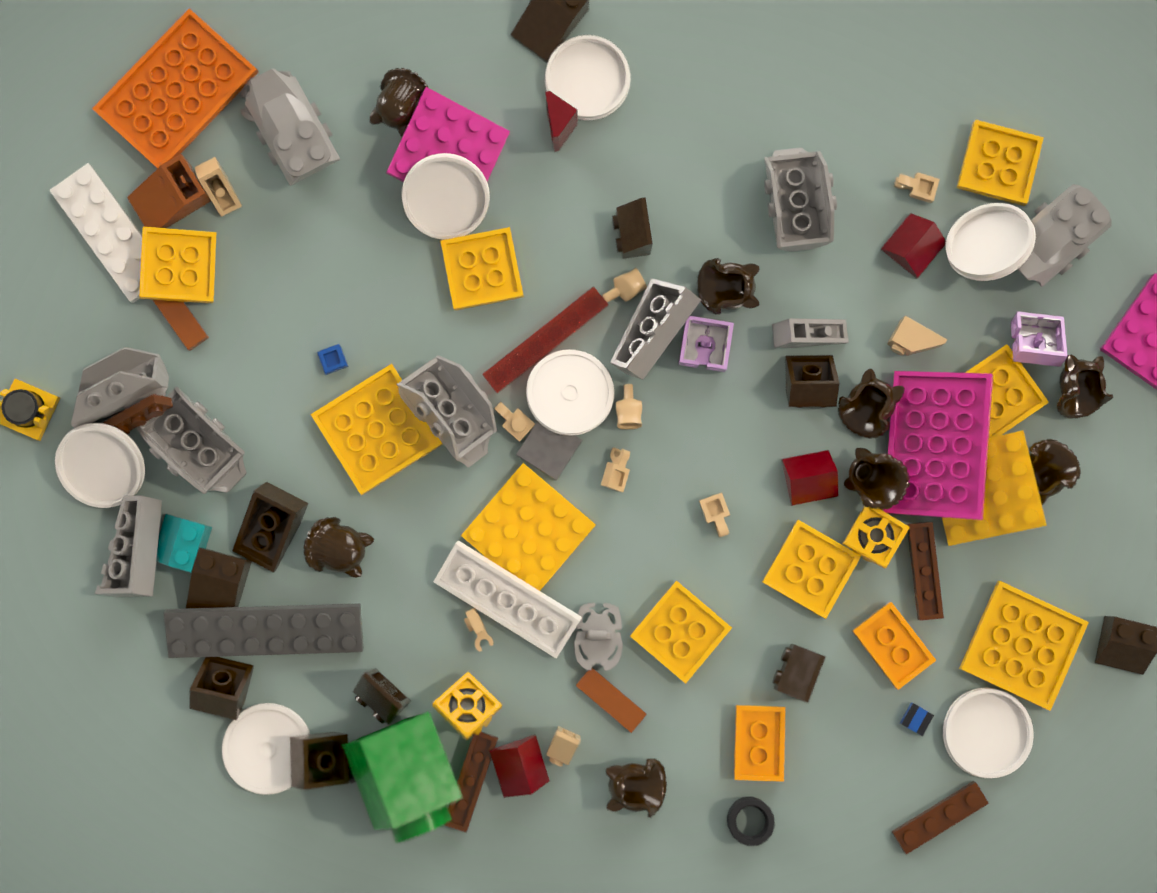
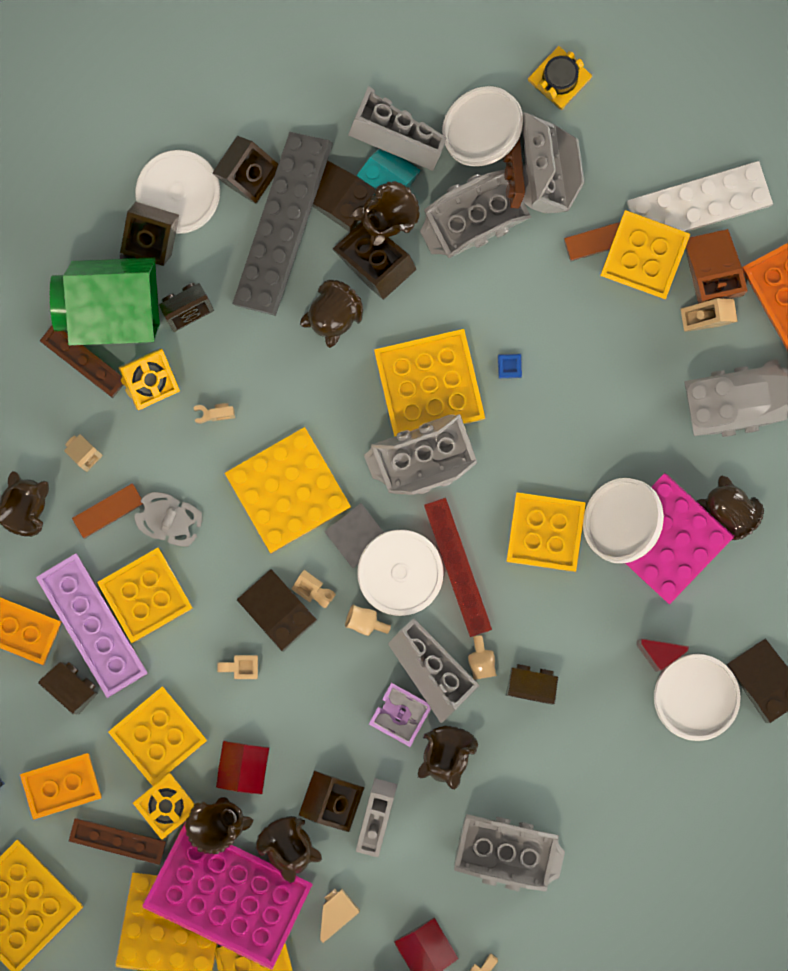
camera: 115 degrees right, 0 degrees up
(217, 526) = (388, 212): none -> dark brown hair
(507, 599) = (231, 448): white plate -> none
(516, 423) = (390, 514): tan plate -> none
(520, 767) = (78, 408): dark red slope -> none
(649, 497) = (277, 610): none -> dark brown slope
(728, 673) = (92, 625): none -> lavender plate

